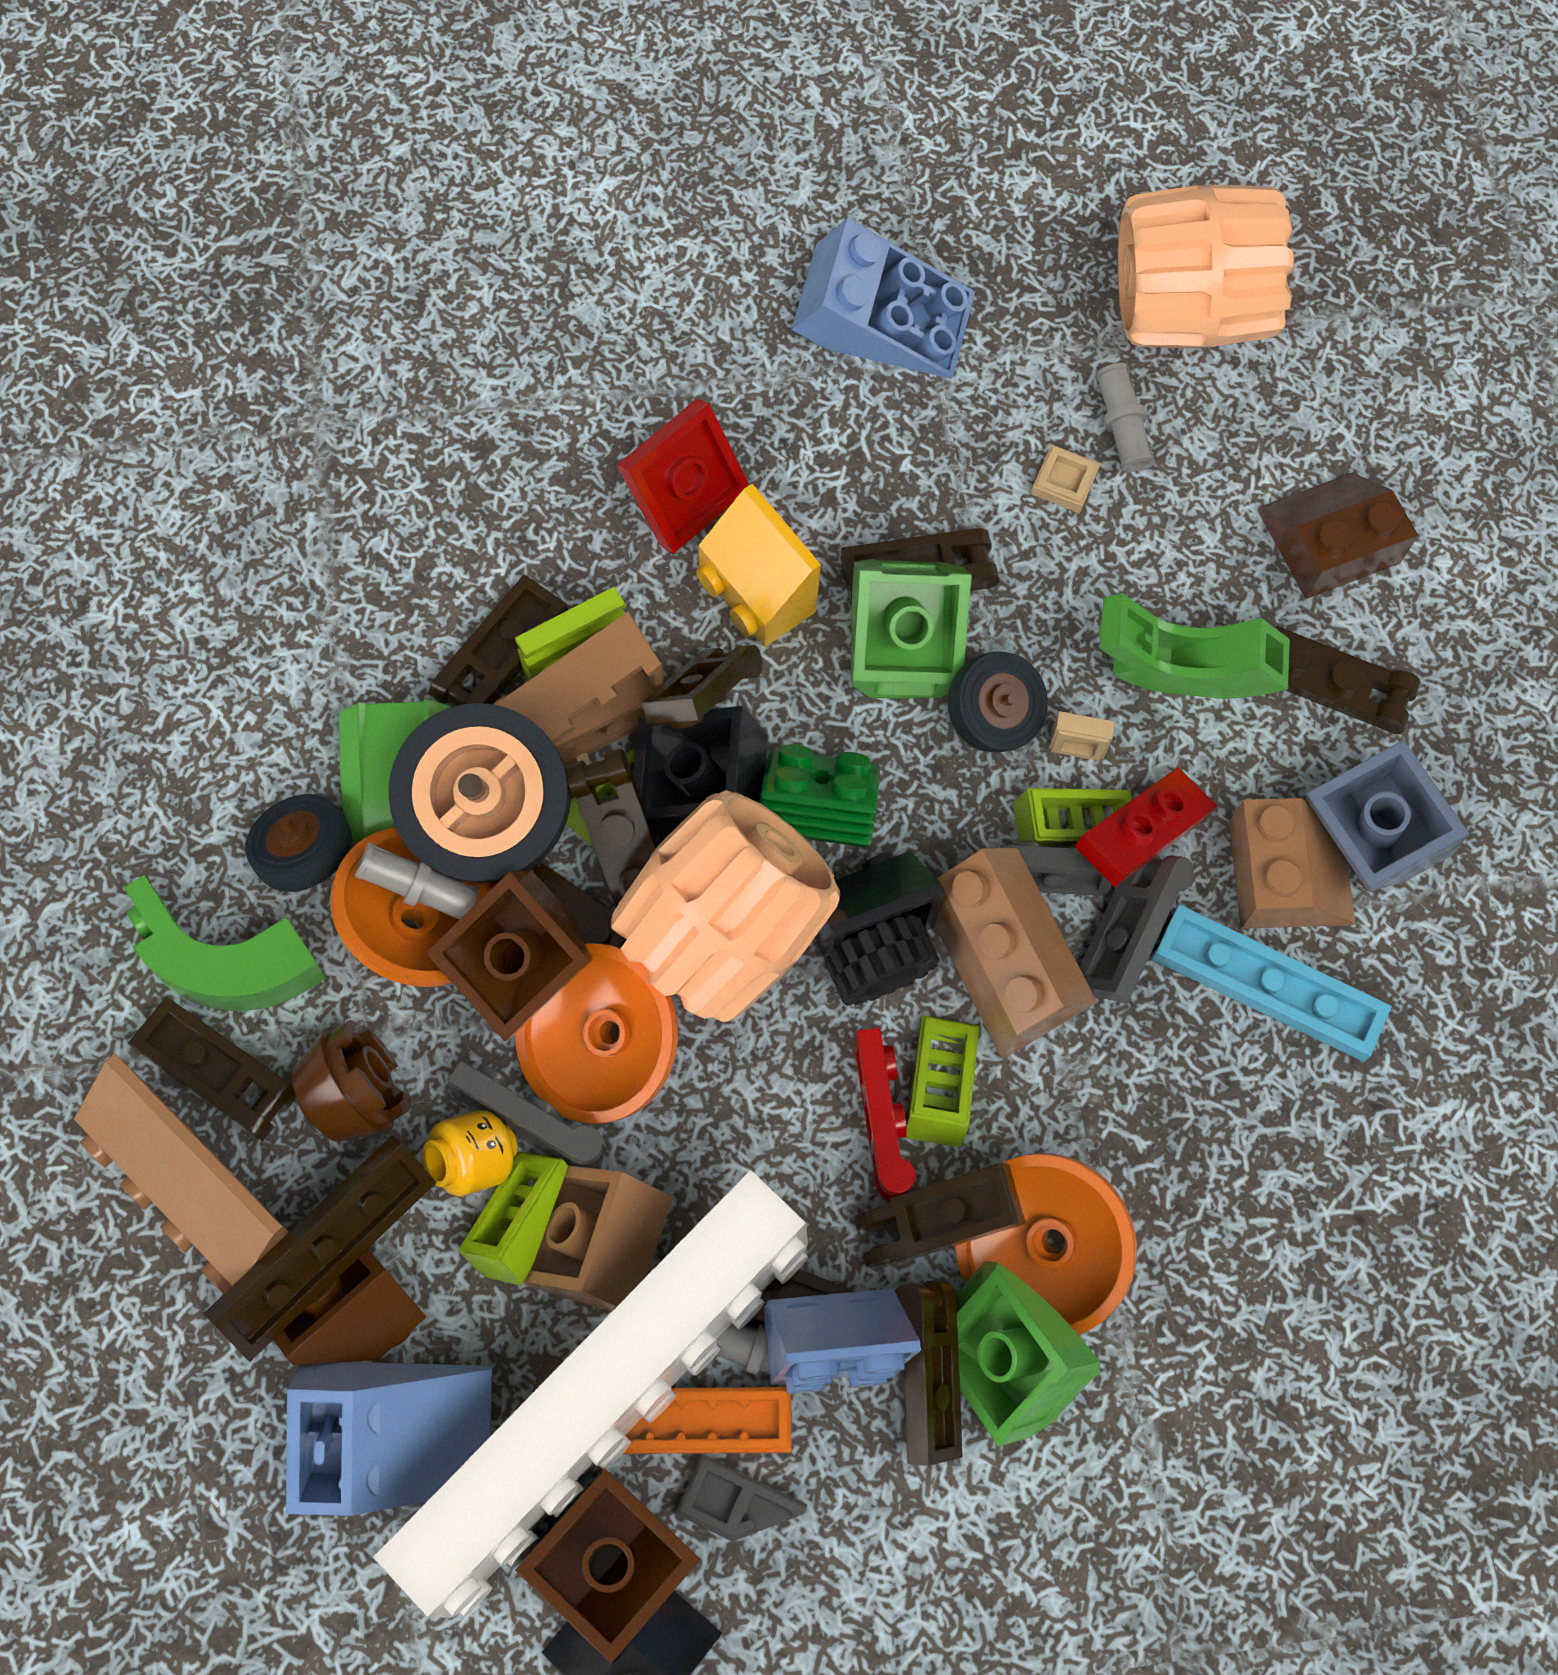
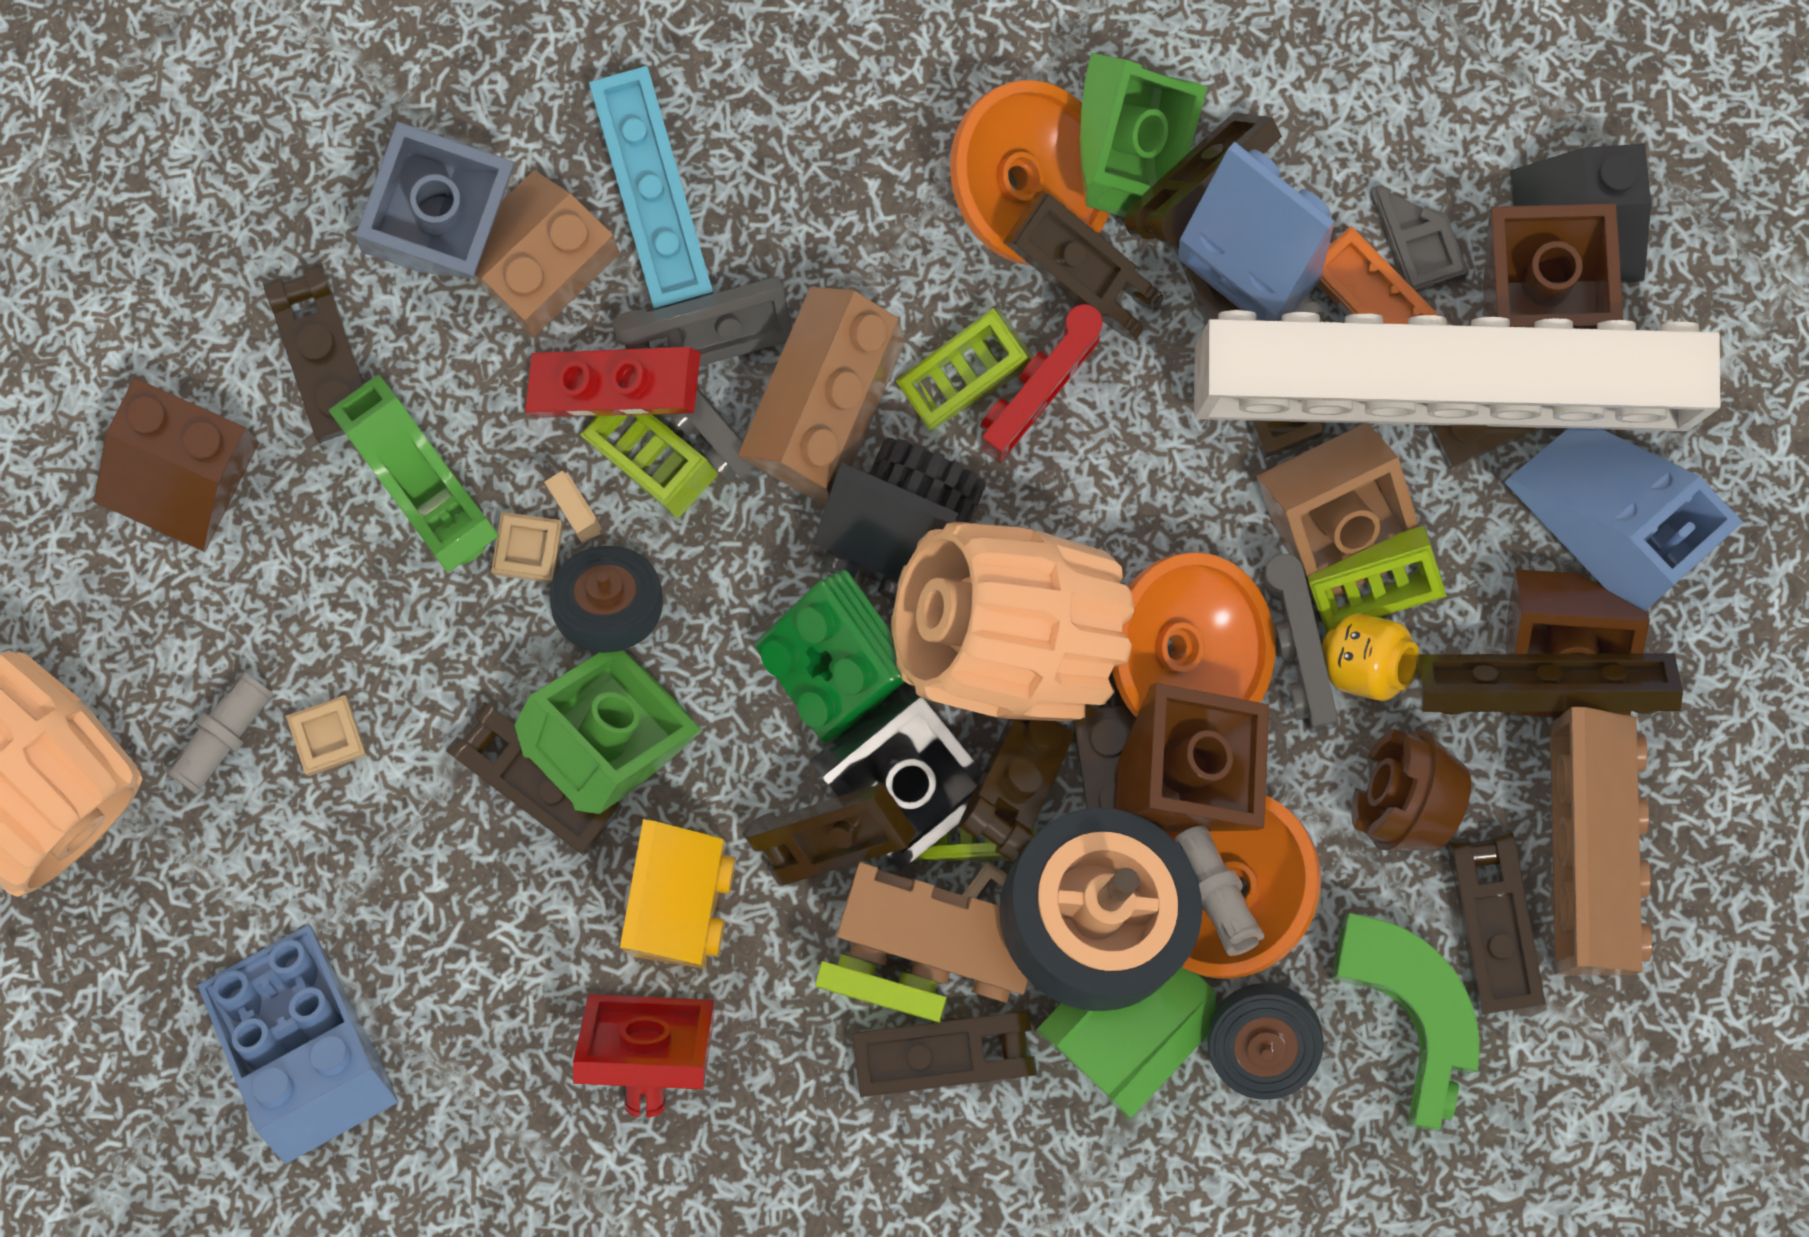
camera: 125 degrees left, 10 degrees up
(1081, 690) = (527, 547): none -> tan tile

